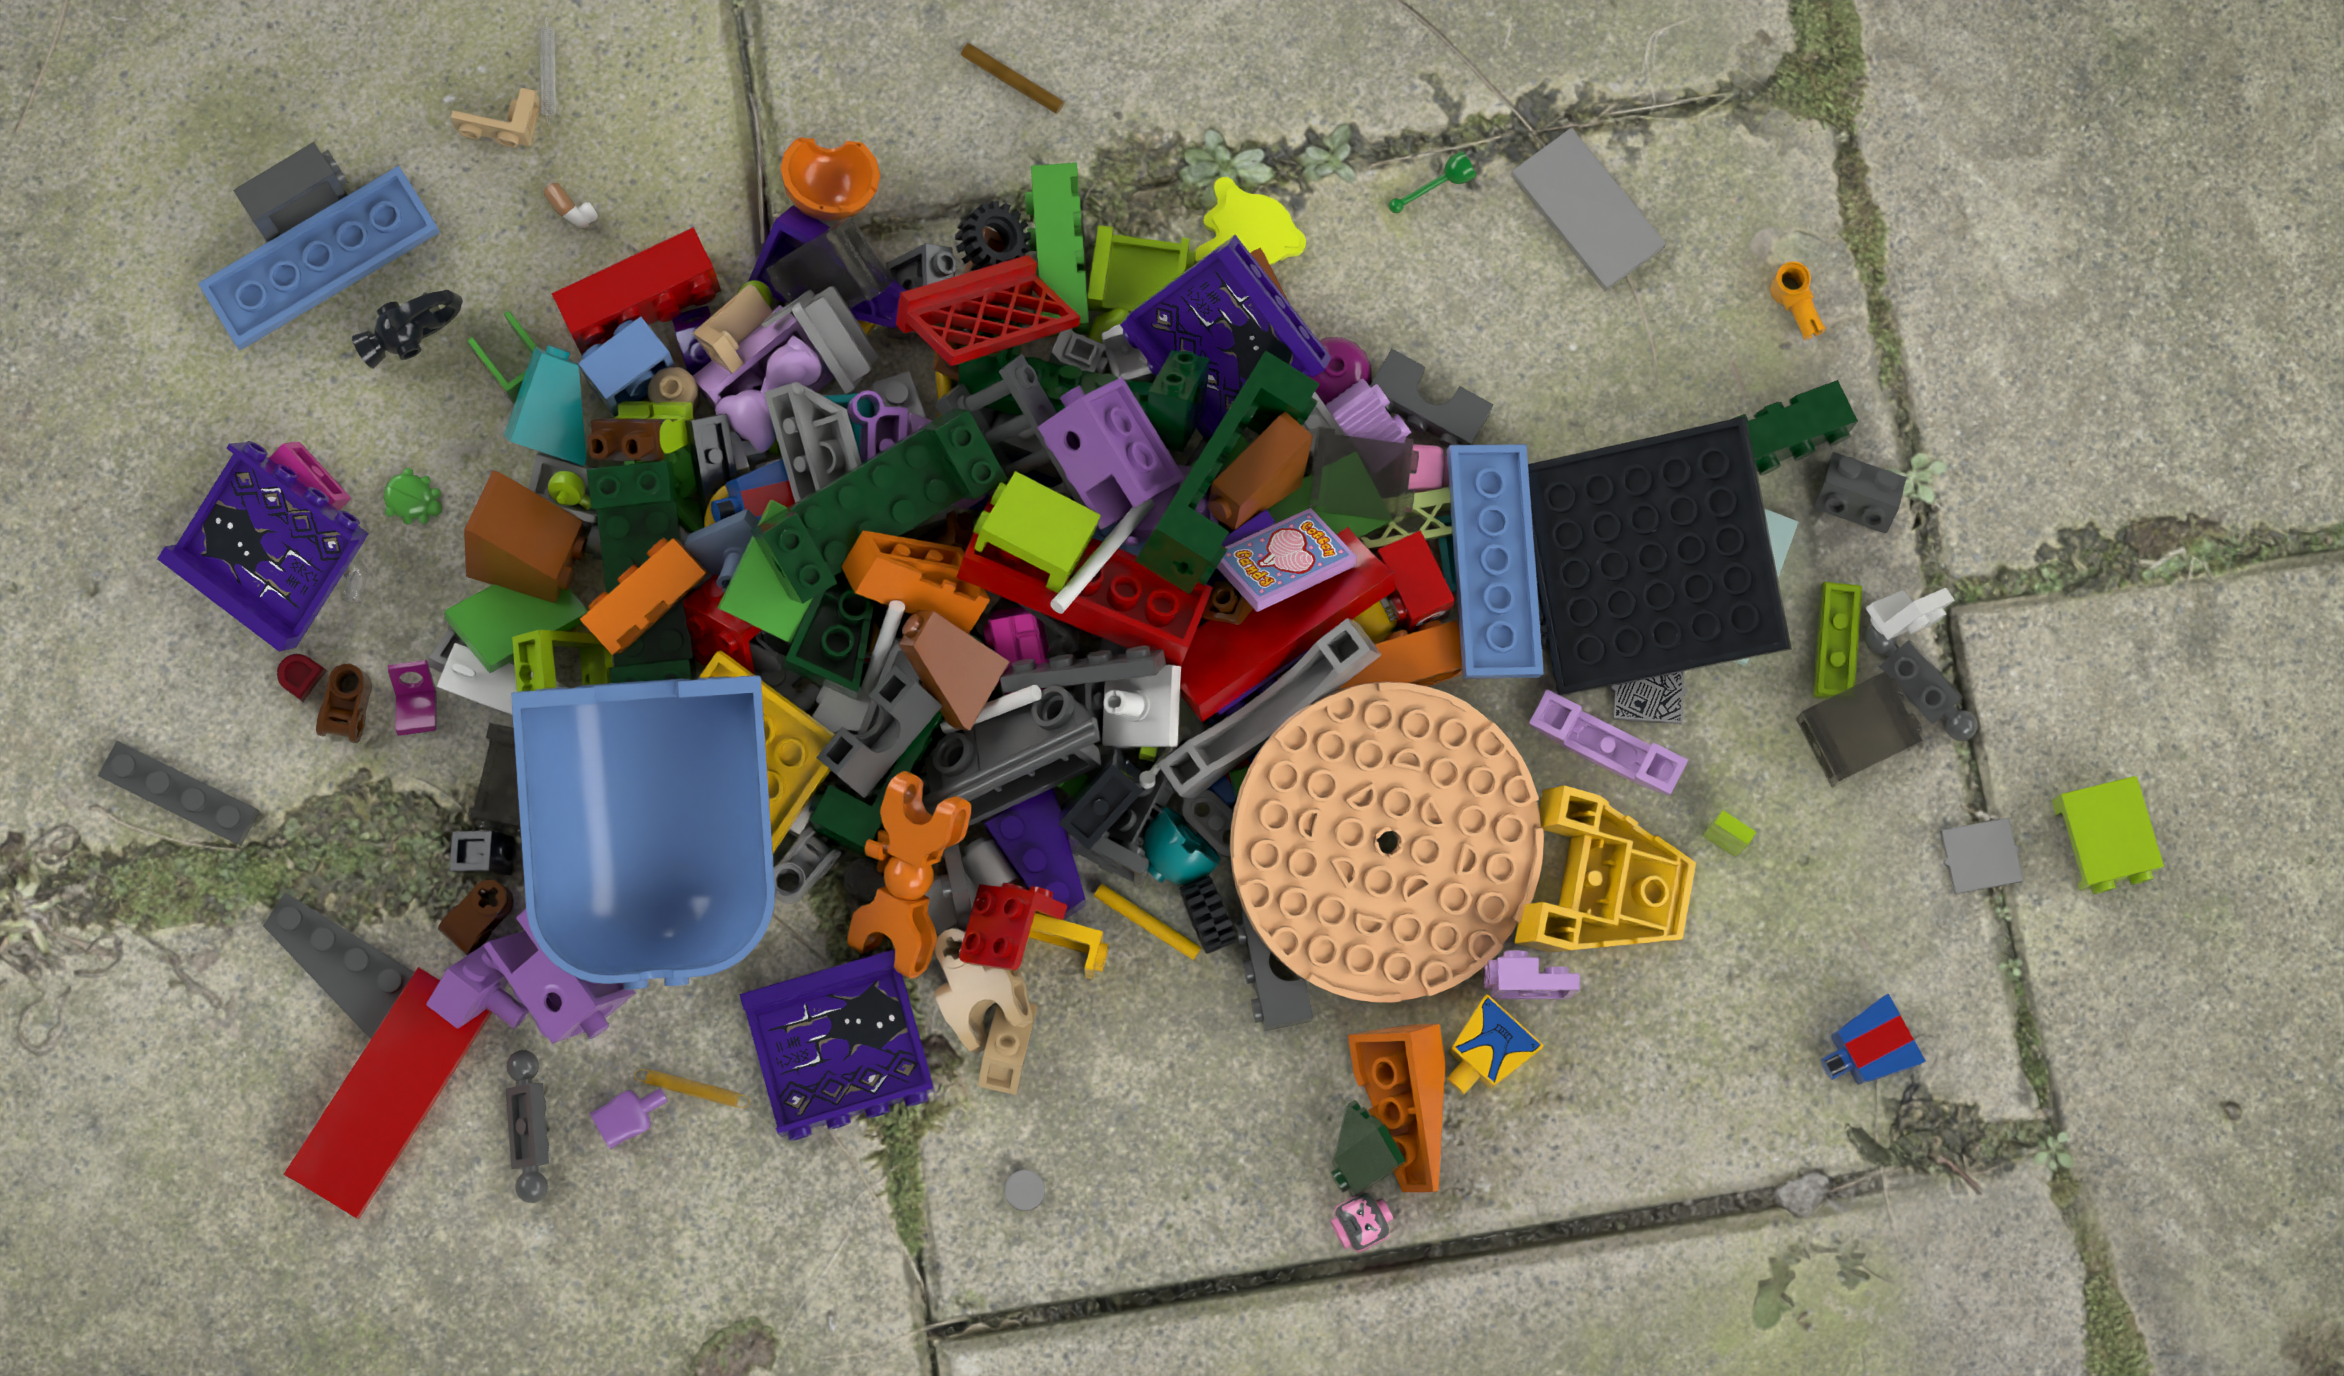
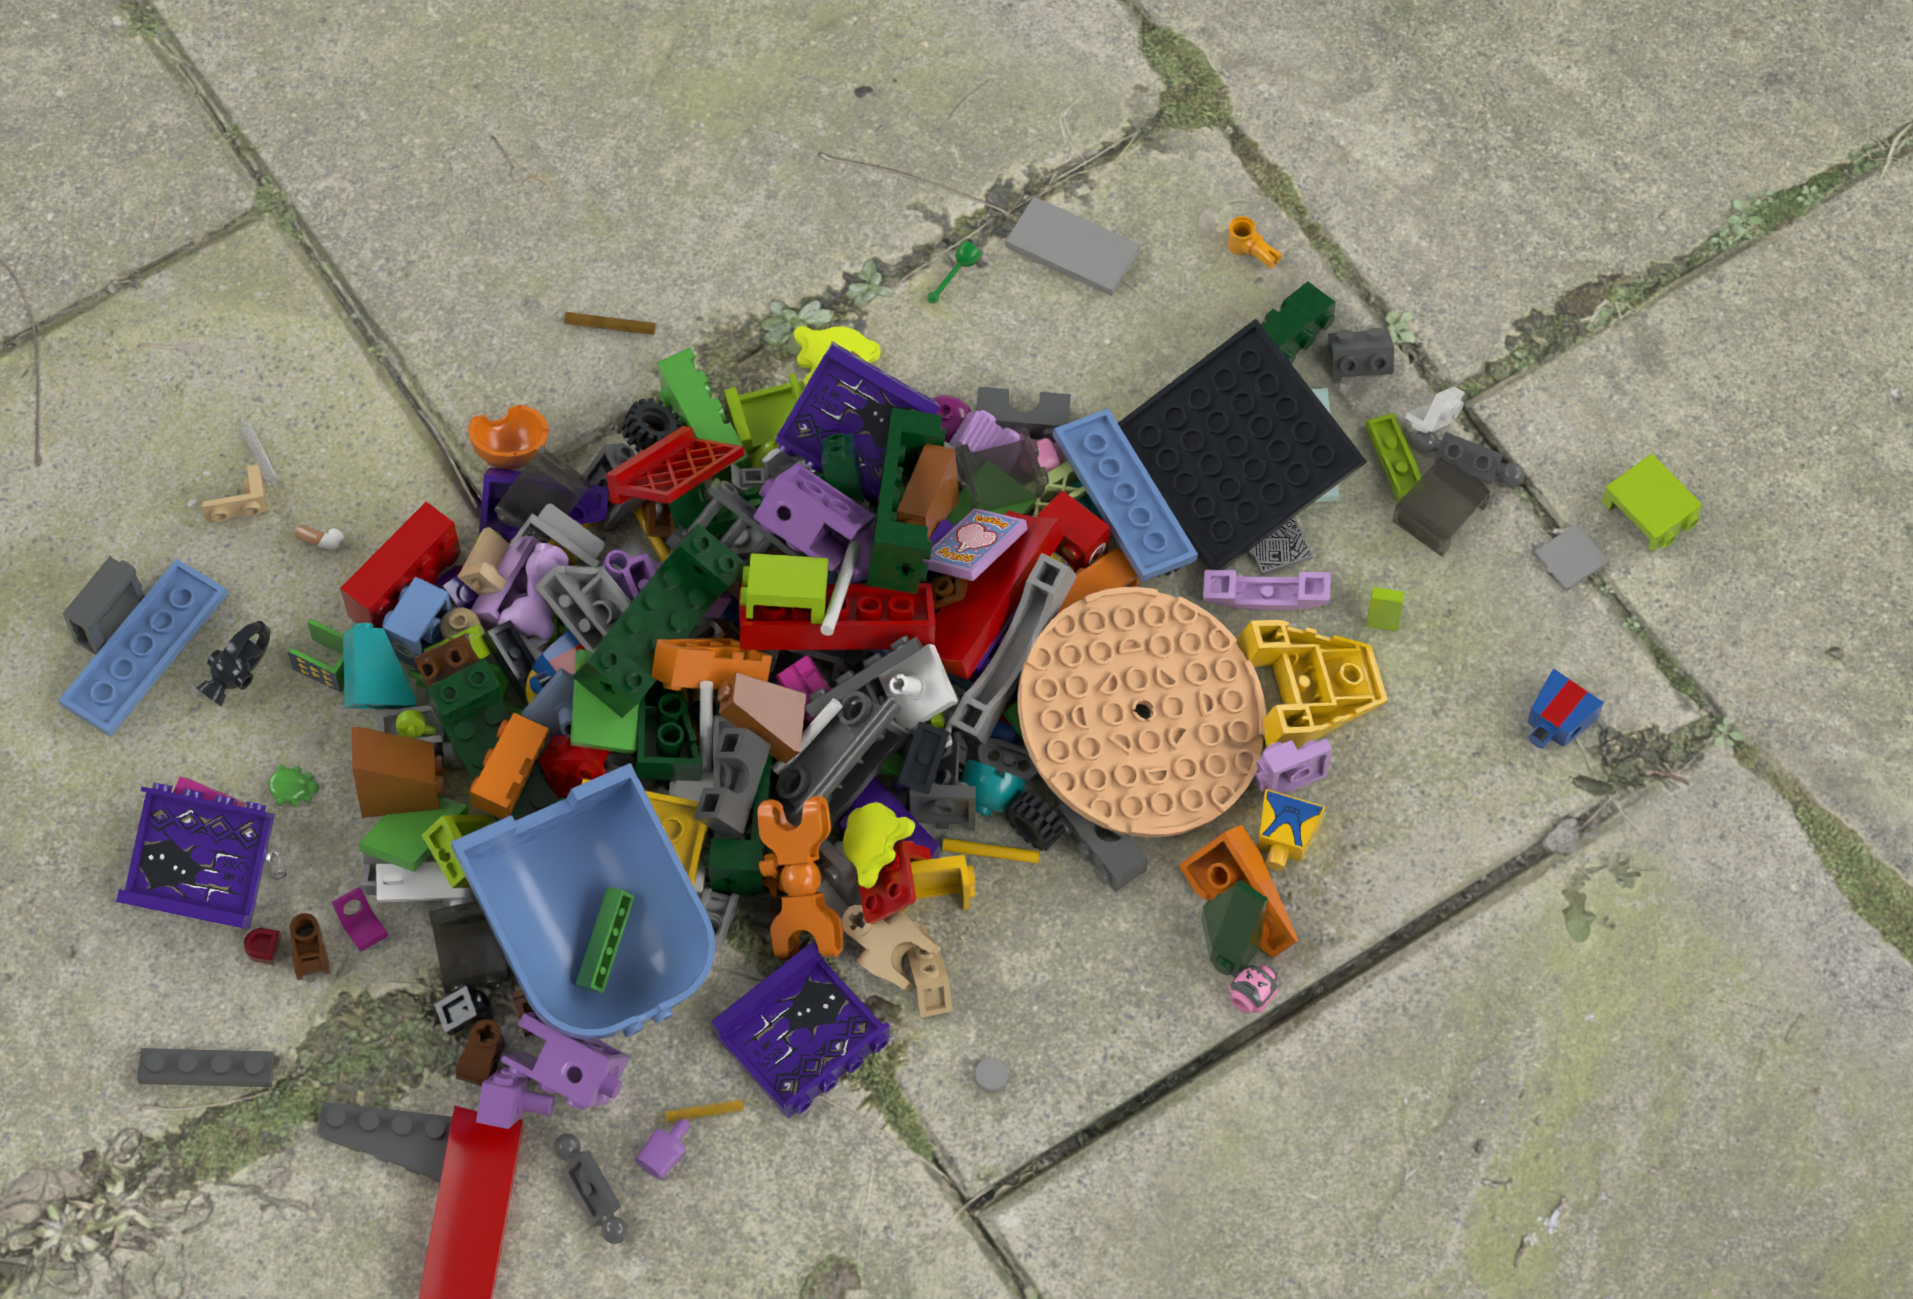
camera: 20 degrees left, 15 degrees down
(660, 852) = (605, 940): none -> bright green piece
(1004, 869) = (871, 839): none -> neon yellow tile

